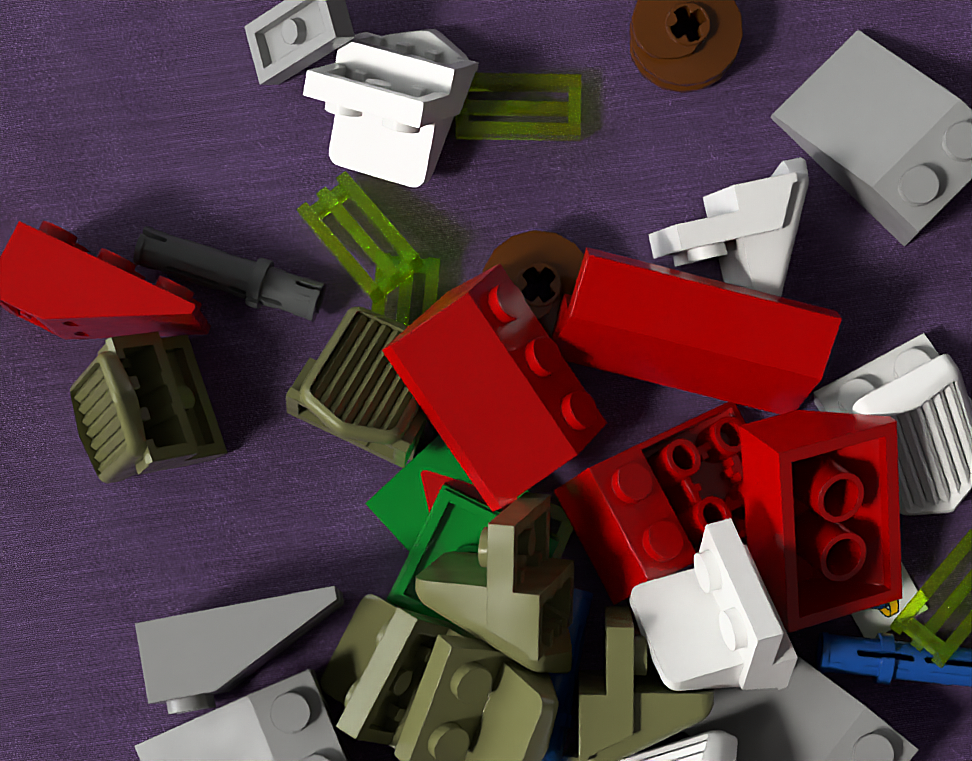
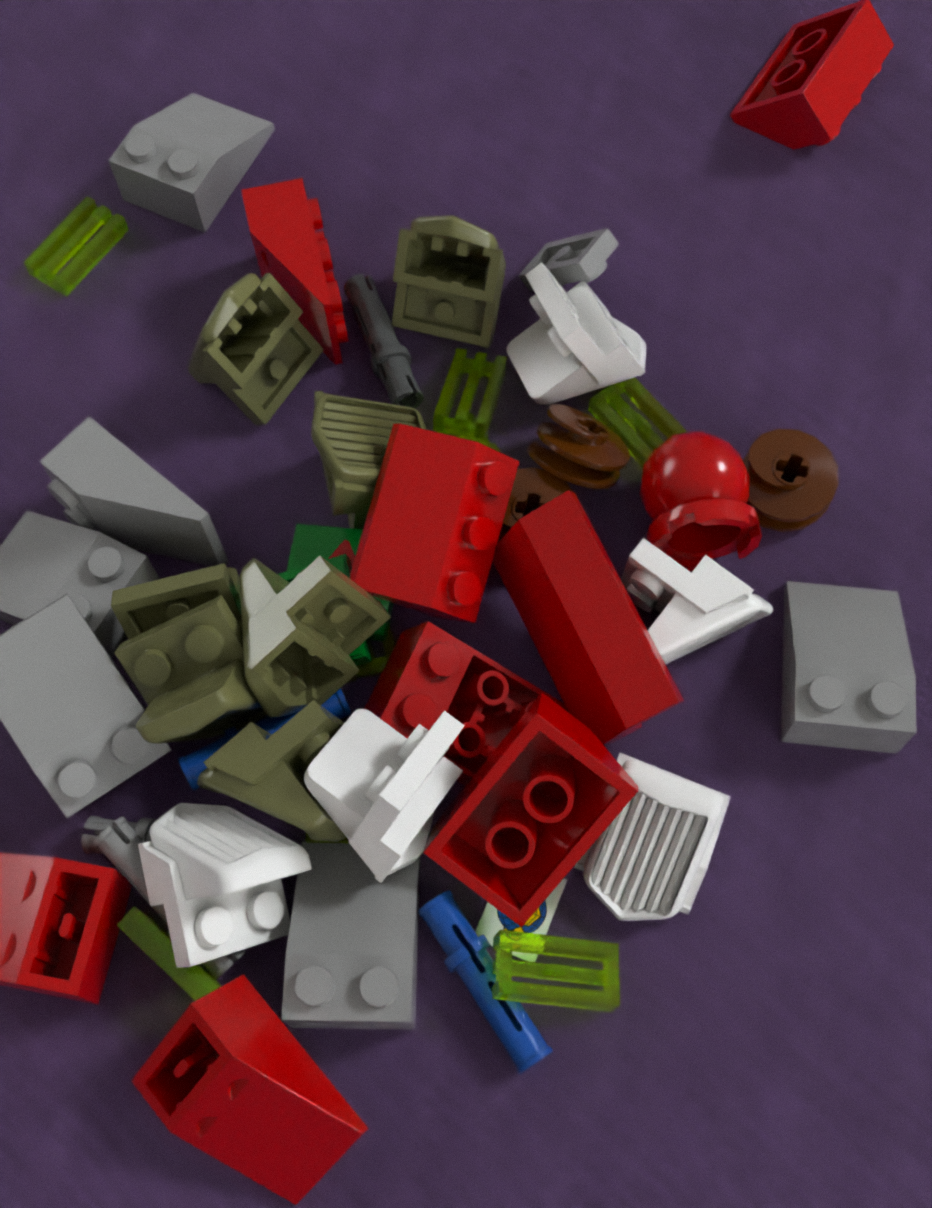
camera: 55 degrees right, 15 degrees down
(231, 161) = (448, 279): none -> olive piece
(507, 189) = (579, 449): none -> reddish brown piece
(641, 127) = (698, 499): none -> red tile

